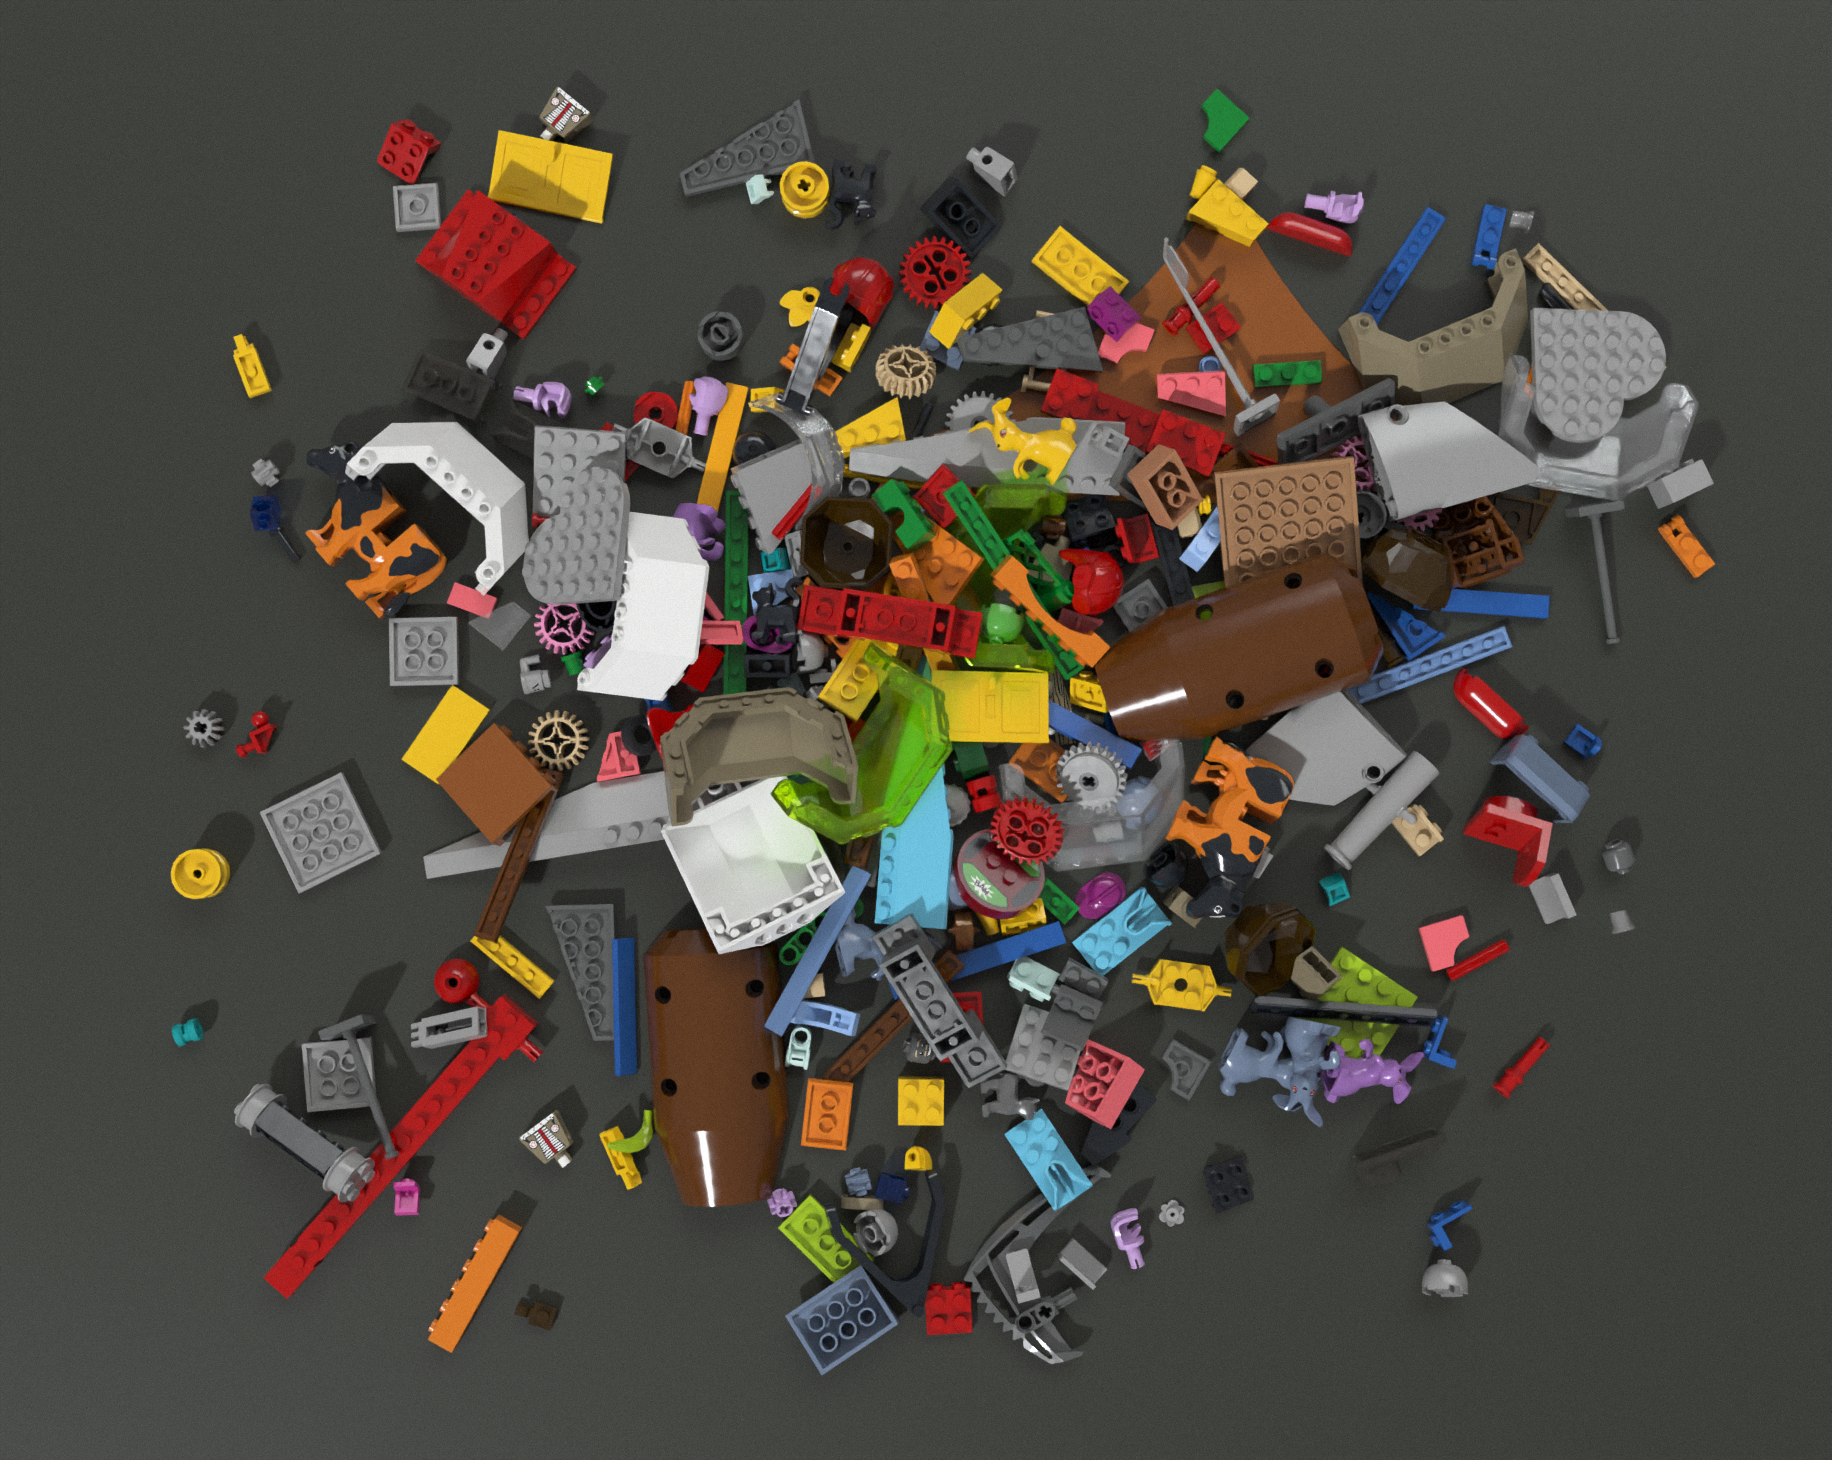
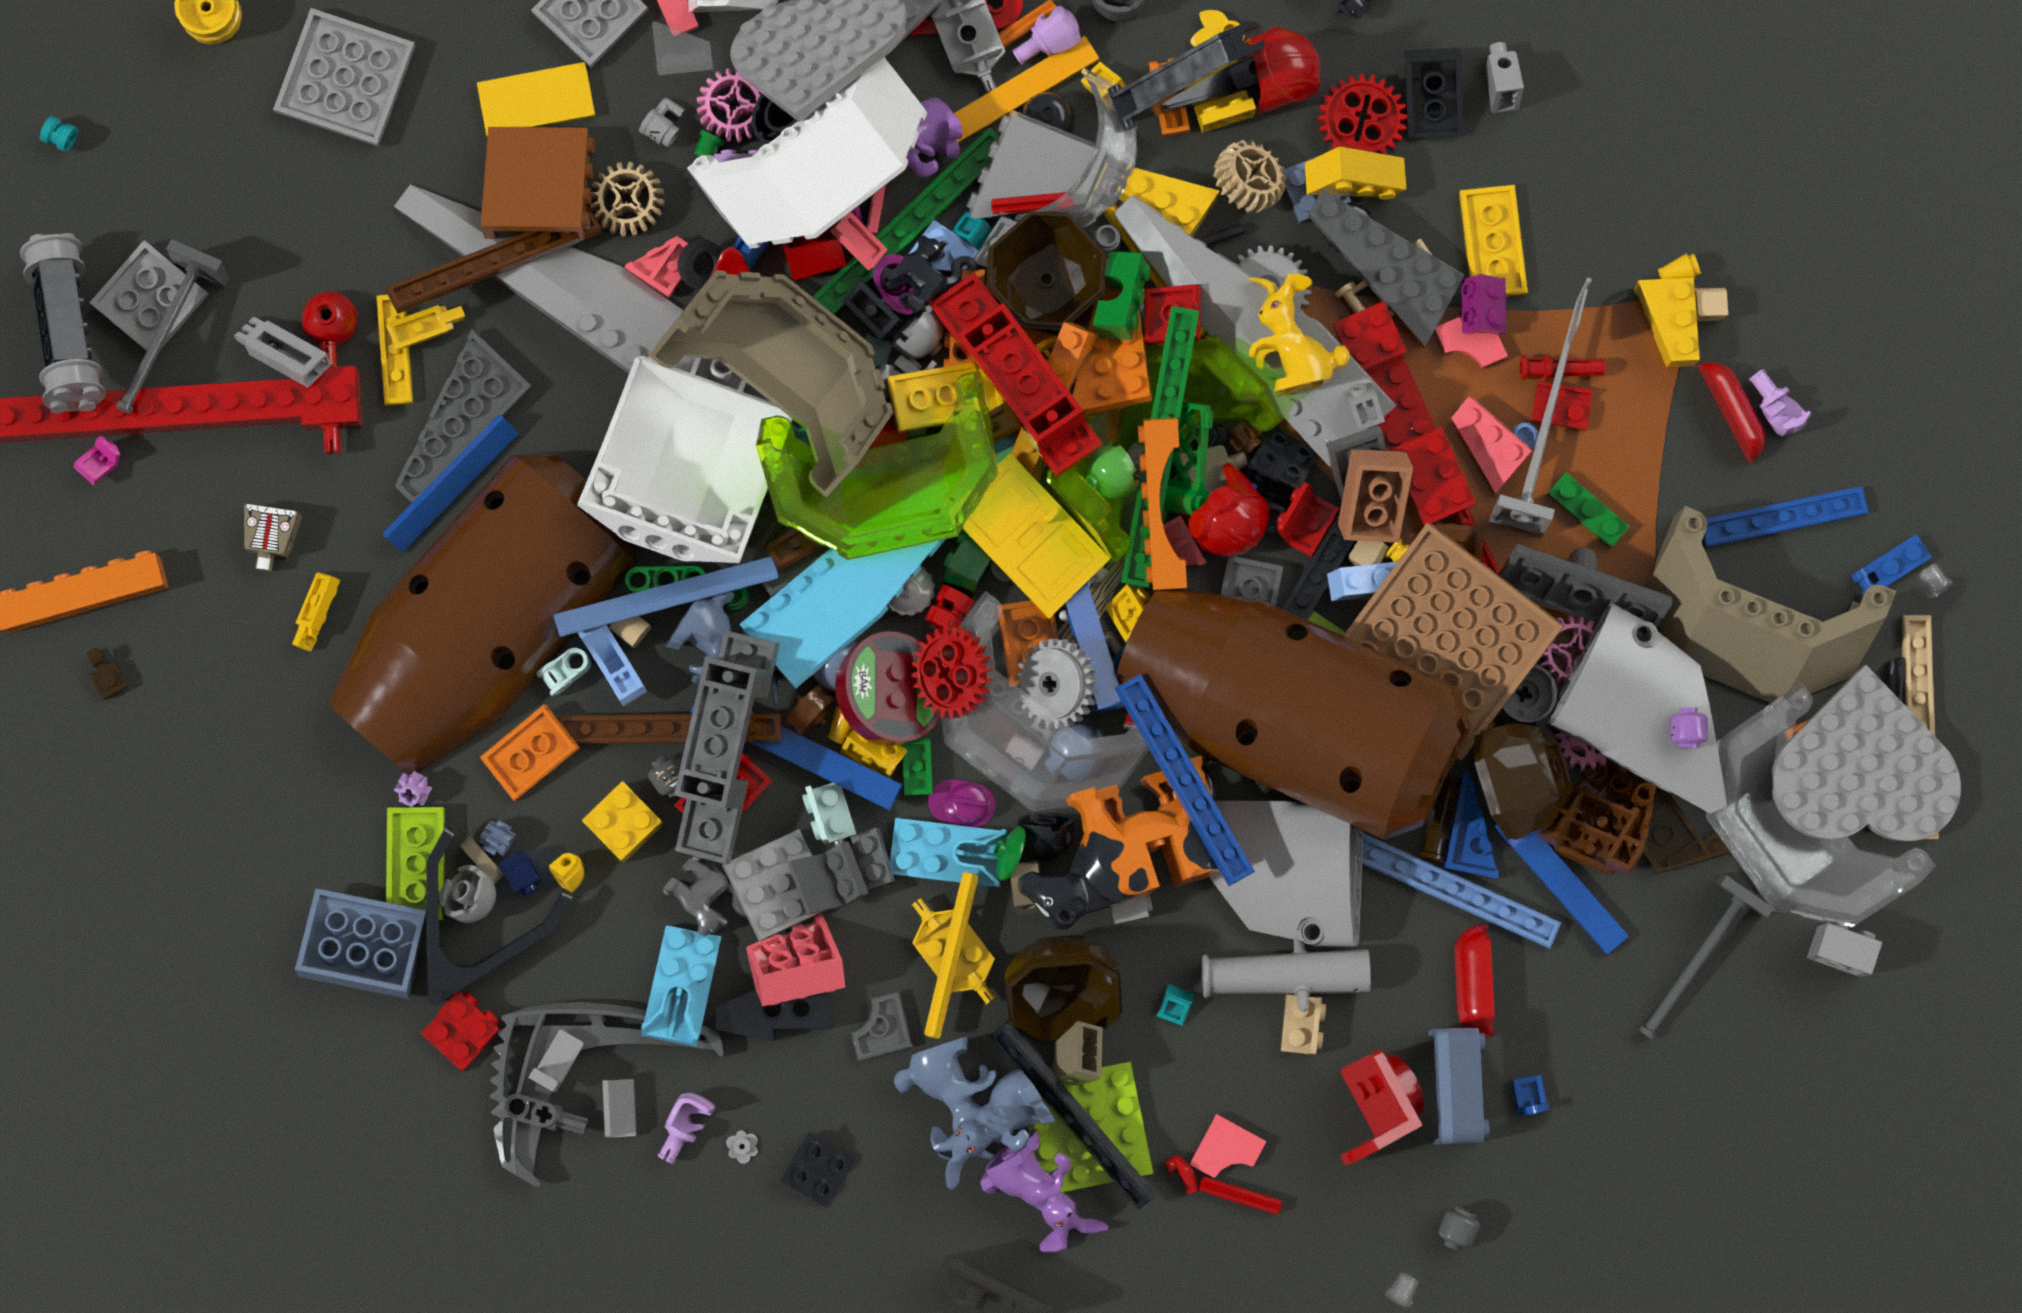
camera: 50 degrees right, 5 degrees down
(515, 932) = (423, 326): none -> yellow hinge
(639, 1140) = (344, 611): lime piece -> none
(1161, 899) = (1009, 852): none -> green dish
(1184, 989) = (951, 955): none -> yellow axle
(1223, 120) = (1754, 235): green tile -> none
(1223, 760) = (1184, 780): none -> blue tile
(1430, 1046) = (1121, 1247): blue bracket -> none
(1436, 978) = (1186, 1173): none -> red arm
(1479, 445) = (1689, 728): none -> medium lavender head
(1552, 898) = (1361, 1206): light grey panel -> none
(1686, 546) = (1798, 1016): orange plate -> none

